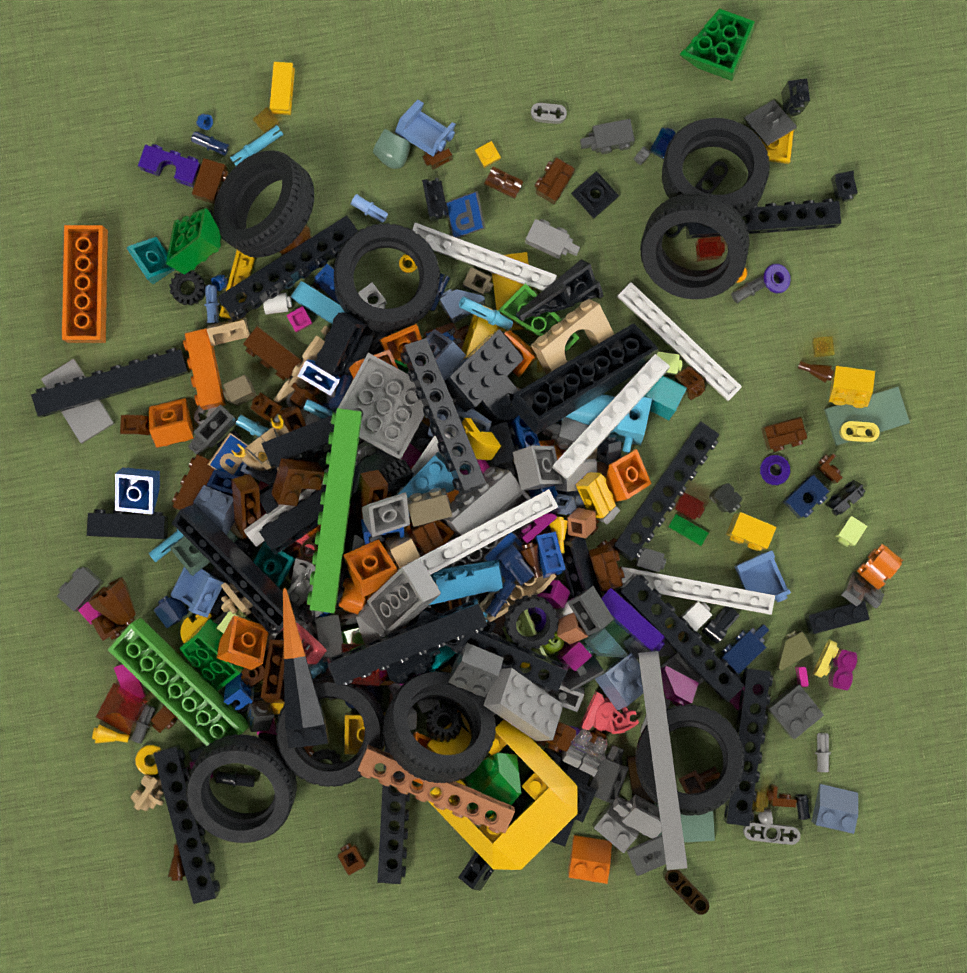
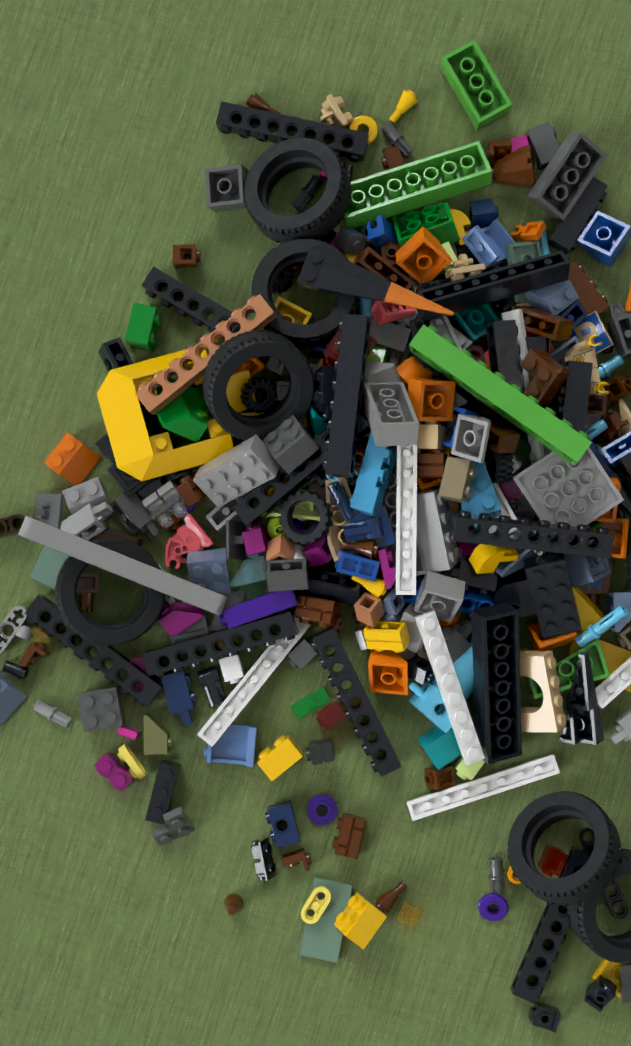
camera: 120 degrees right, 0 degrees up
(56, 680) = (475, 85): none -> bright green brick
(99, 554) = (567, 175): none -> dark grey brick
(121, 709) = (420, 128): clear red slope -> none
(129, 681) = (436, 145): dark pink tile -> none
(166, 558) = (531, 232): none -> orange plate
(270, 856) = (226, 187): none -> dark grey brick
(437, 860) = (143, 327): none -> green brick
(799, 150) = (600, 992): none -> black brick
(850, 531) = (231, 846): yellowish green brick -> none
(880, 566) = (186, 855): orange brick -> none
(898, 503) = (233, 903): none -> reddish brown cone

